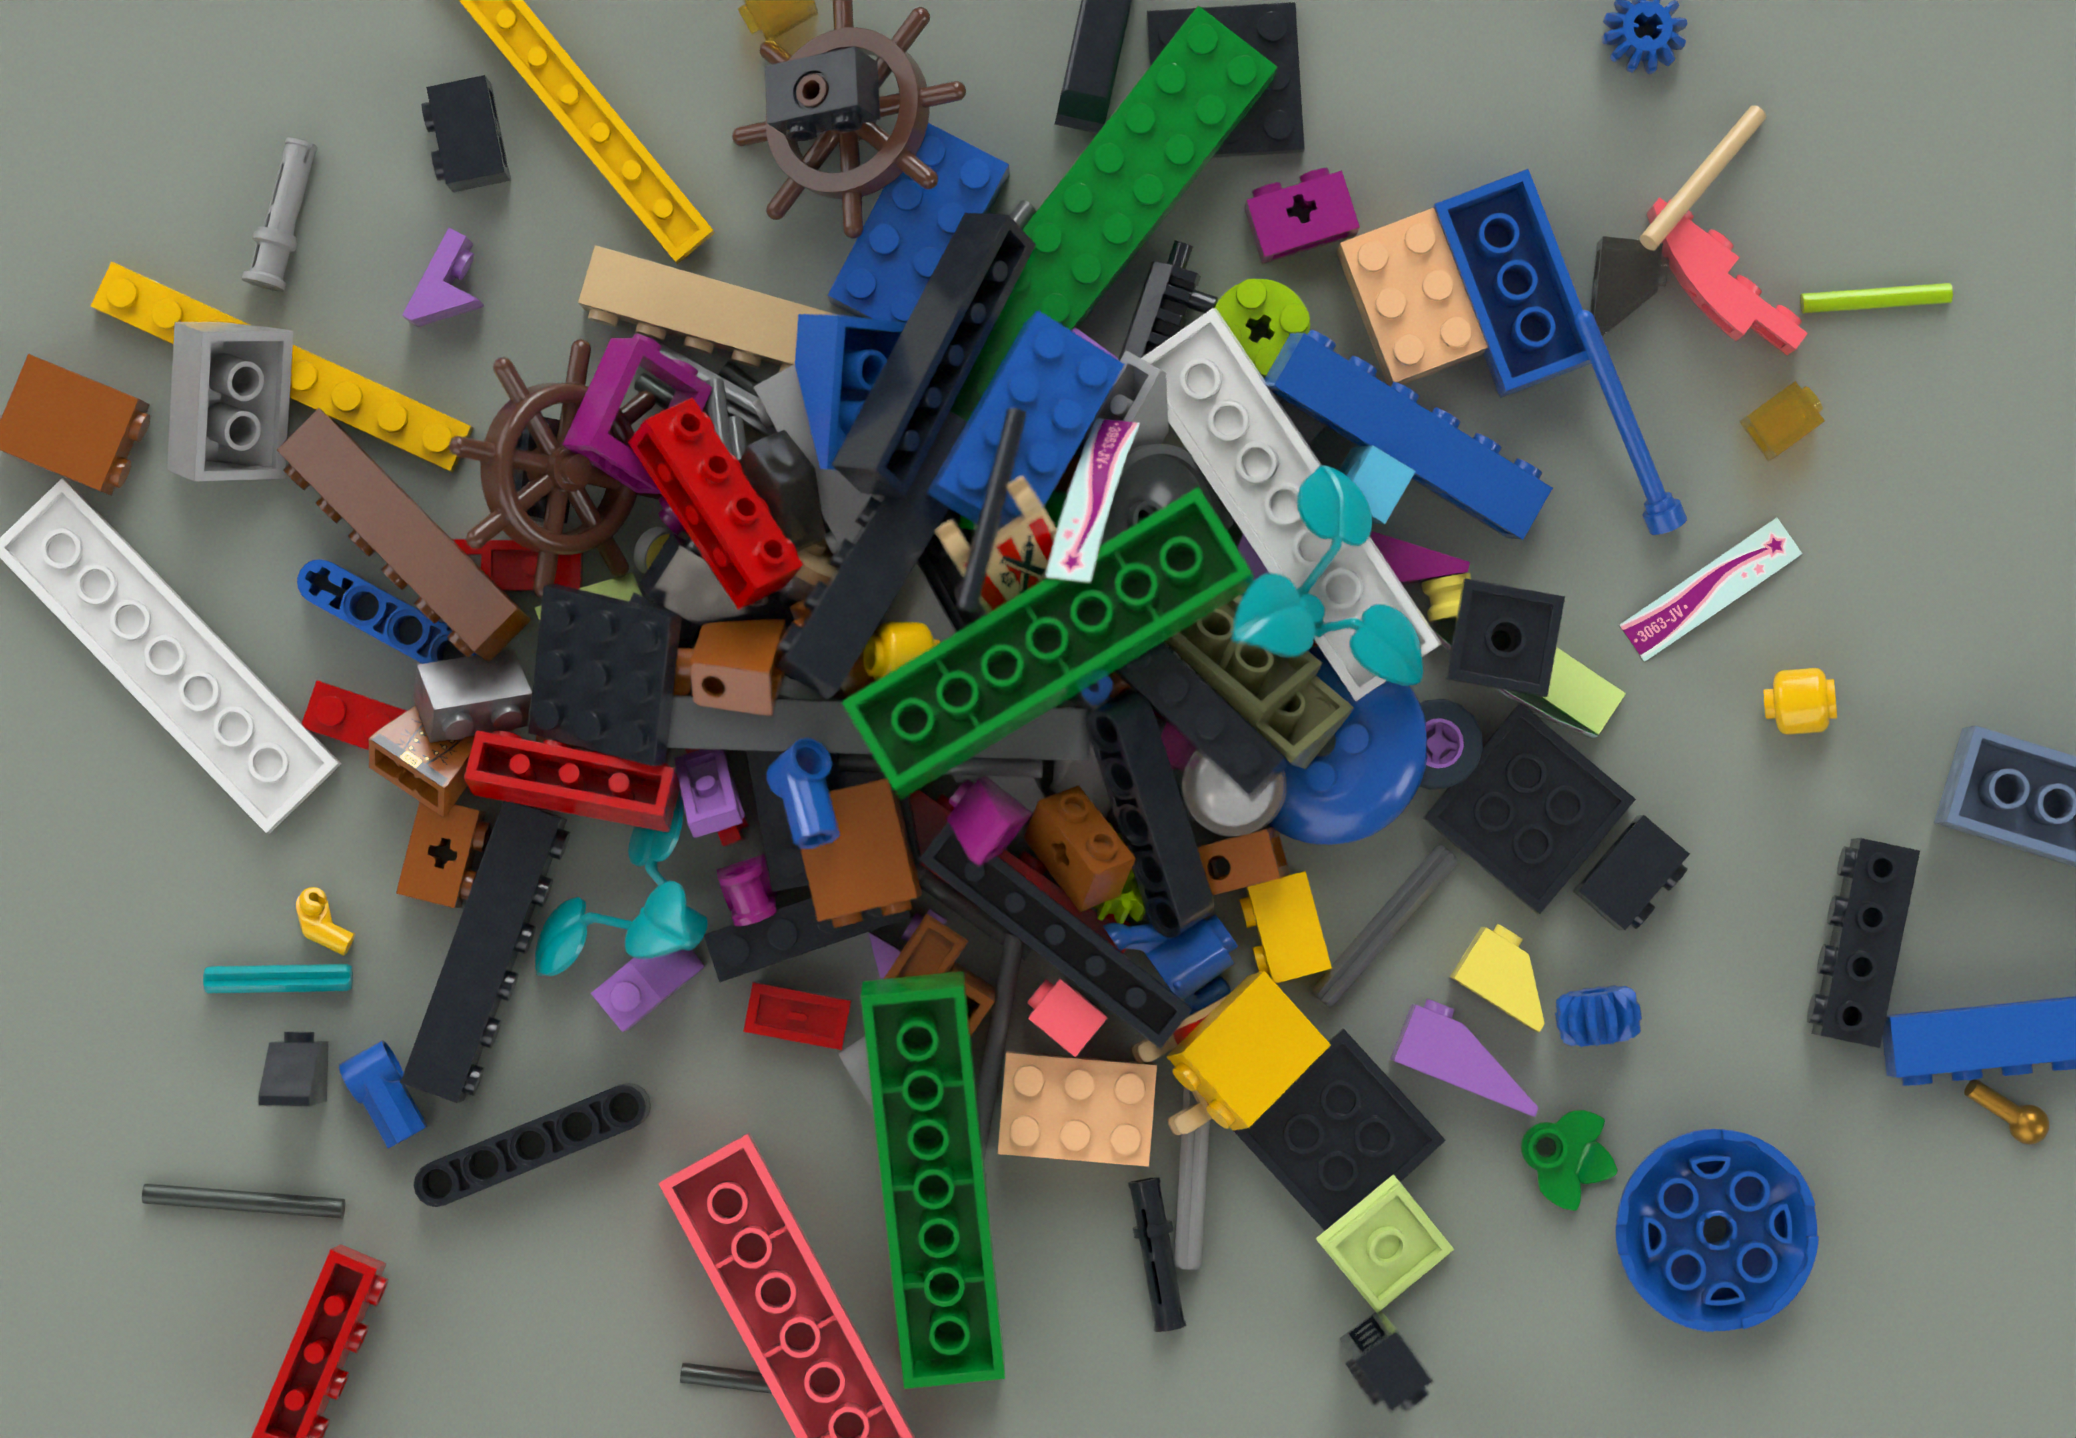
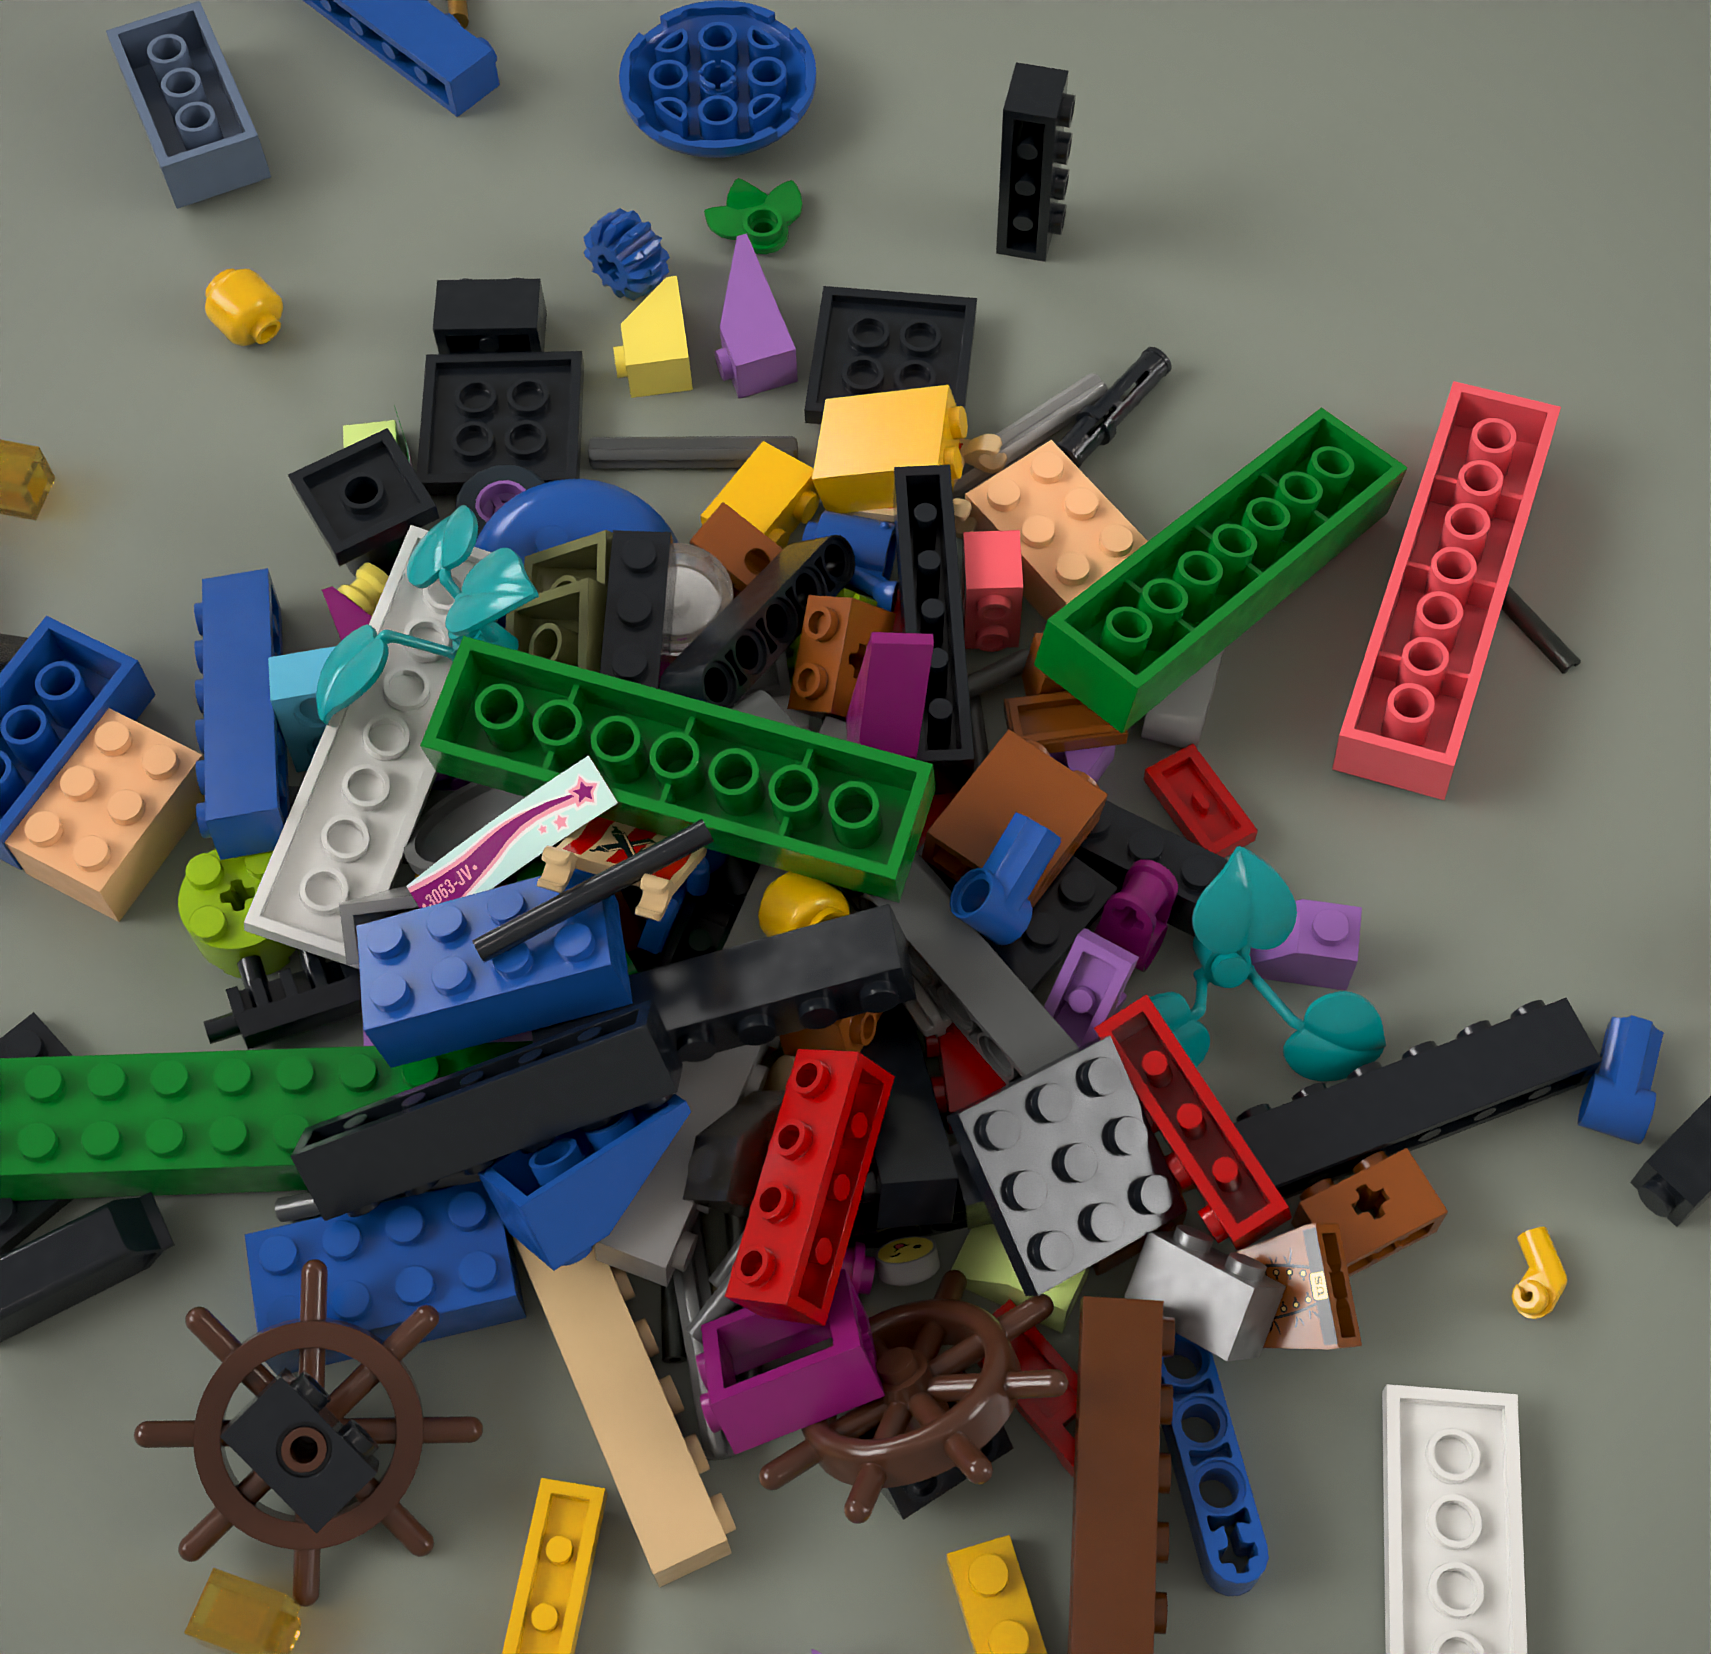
camera: 135 degrees left, 25 degrees down
(278, 978) = (1629, 1271): teal axle -> none
(346, 714) = (1328, 1415): red plate -> none
(508, 1149) = (1558, 915): black beam -> none
(735, 665) = (946, 1044): dark orange torso -> none
(1328, 222) = (102, 961): magenta brick -> none
(1385, 1243) = (943, 268): yellowish green plate -> none
(1662, 510) = (157, 506): blue piece -> none
(1710, 589) = (205, 437): sticker -> none
(1864, 941) = (409, 148): black brick -> none

